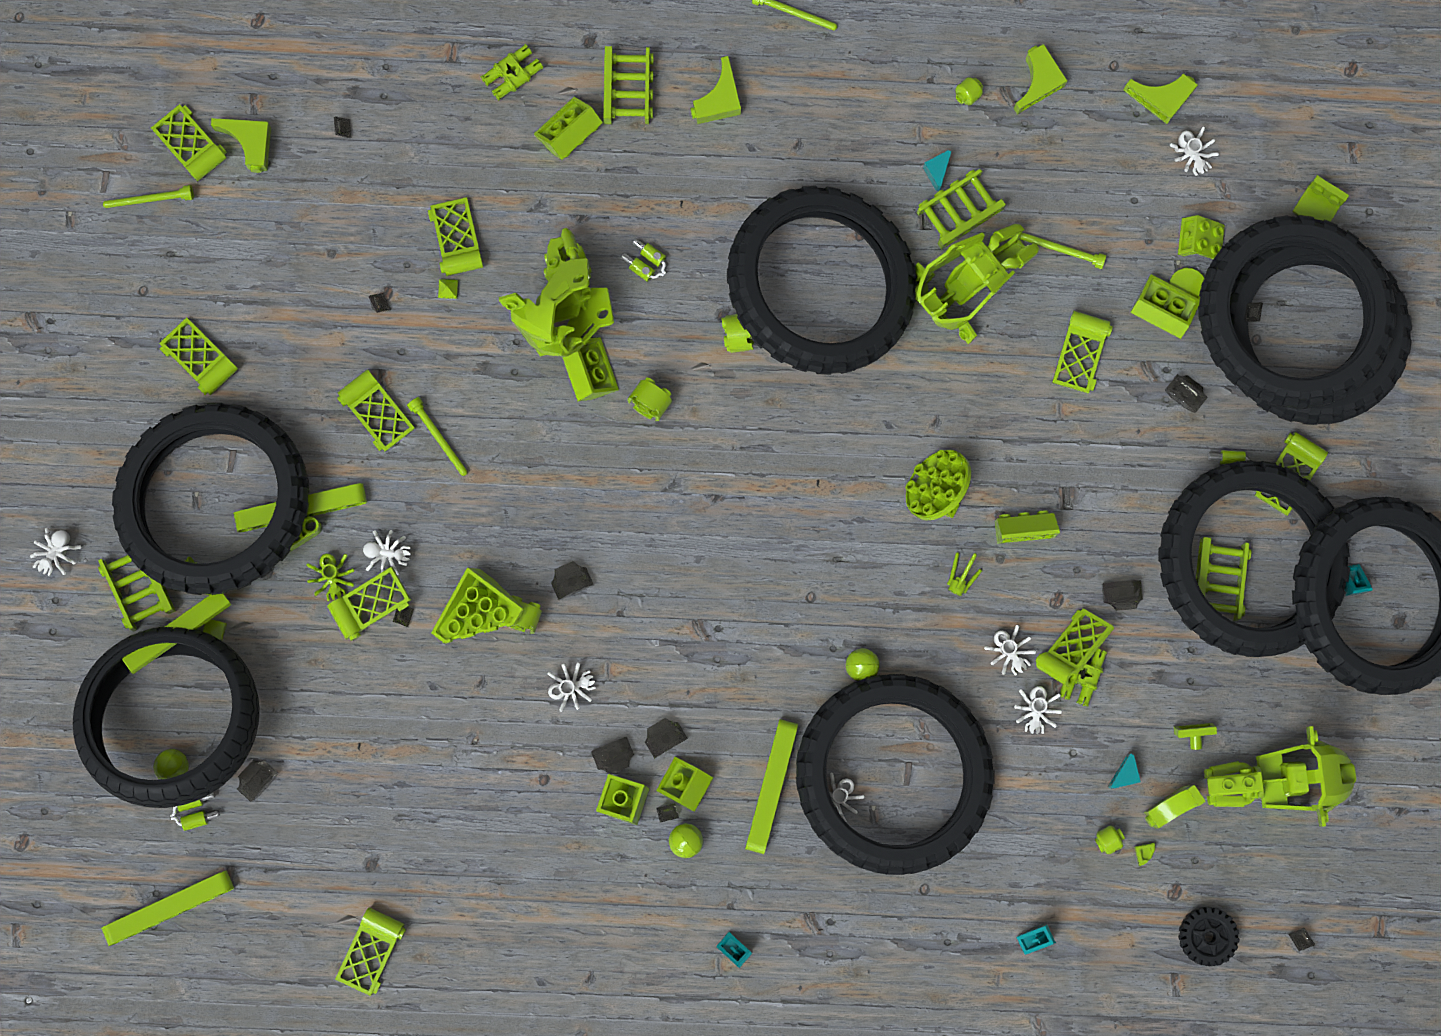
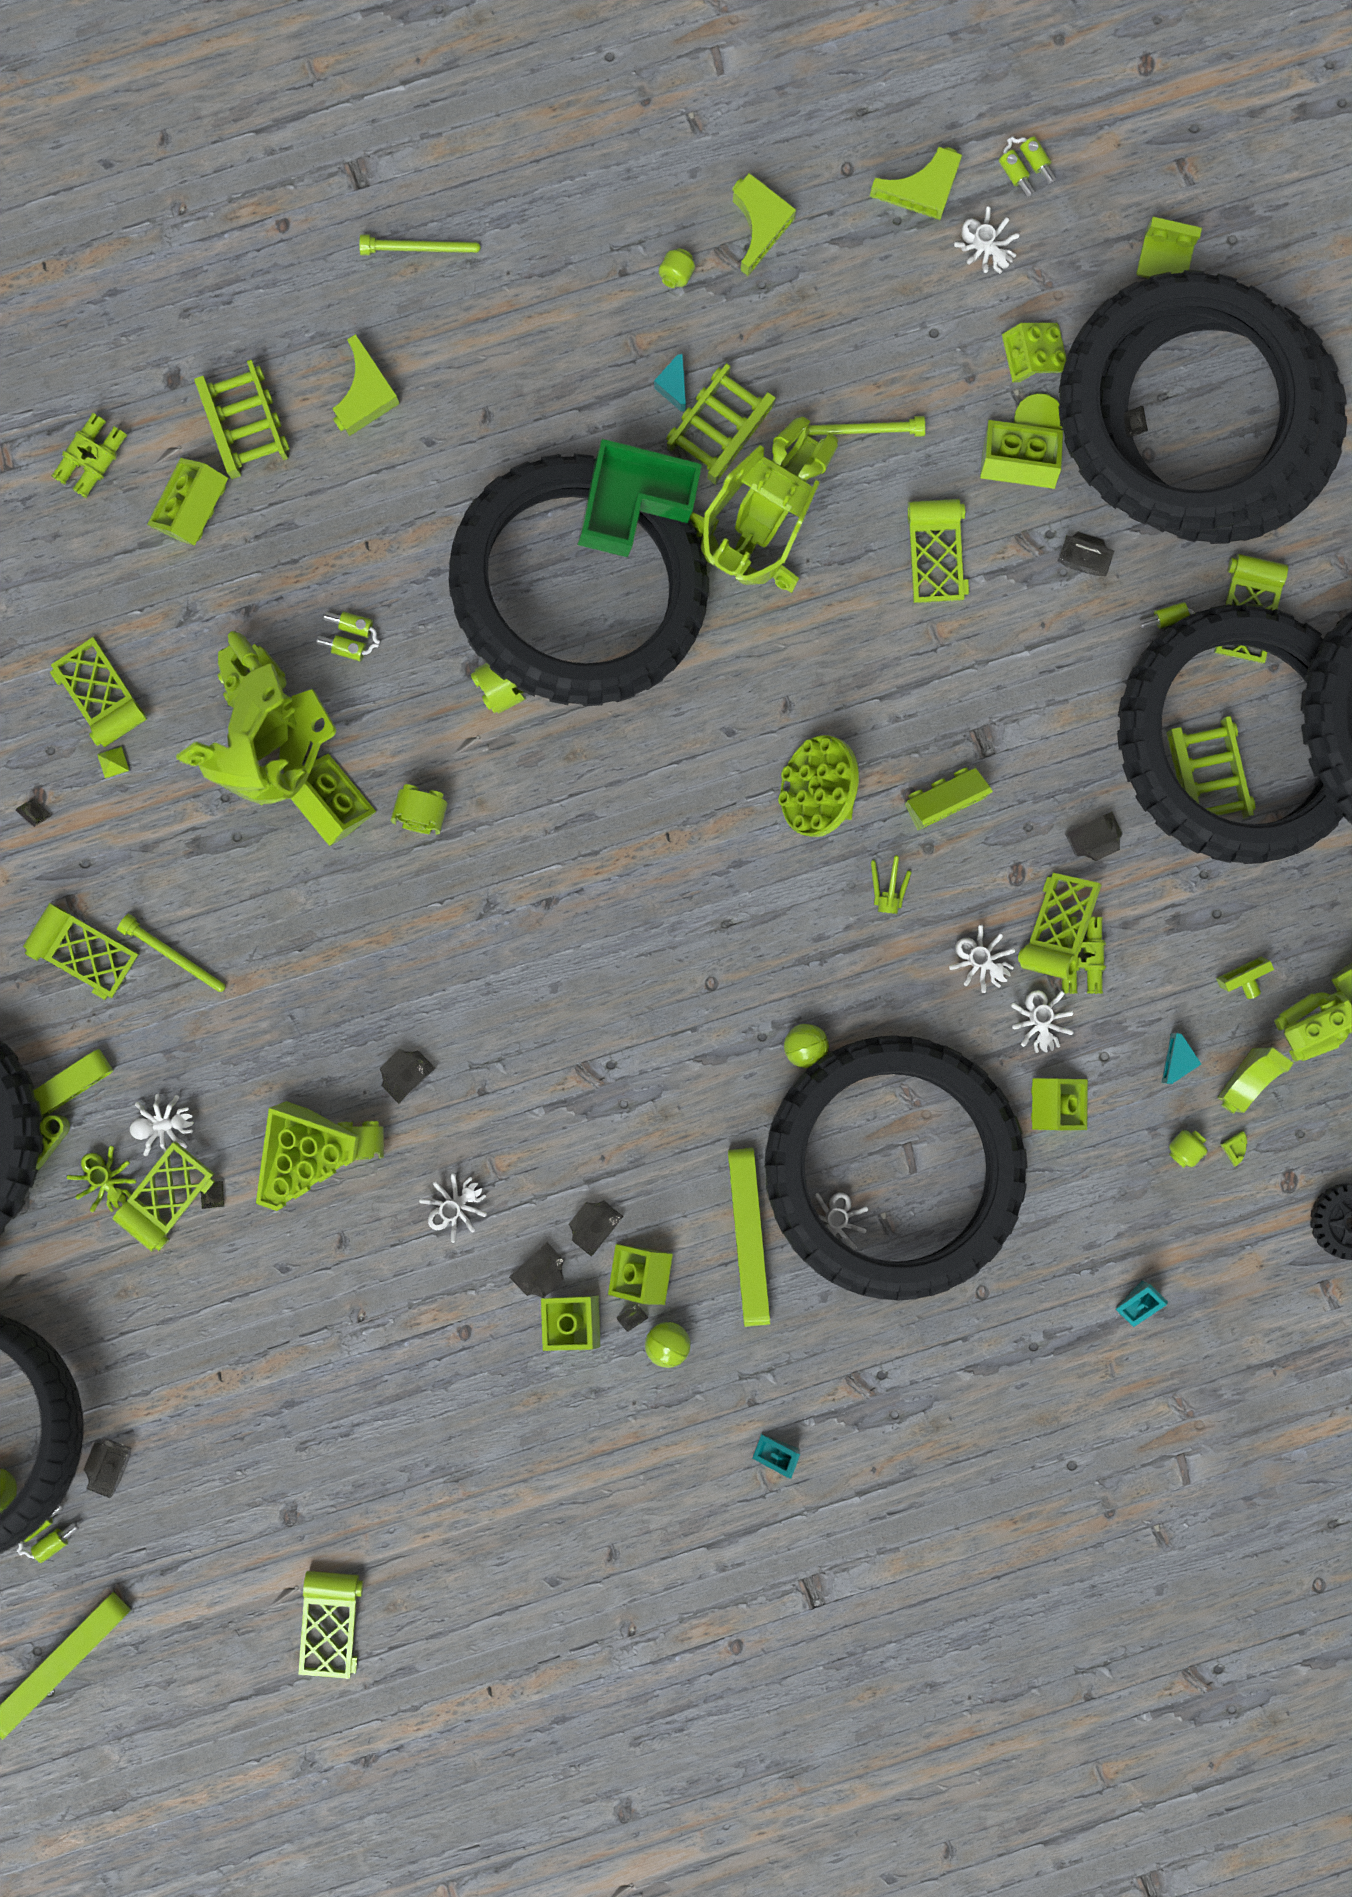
camera: 20 degrees left, 5 degrees up
(886, 226) = (632, 482): none -> green piece
(1028, 774) = (1059, 1104): none -> lime slope
(1250, 106) = (1035, 156): none -> lime piece

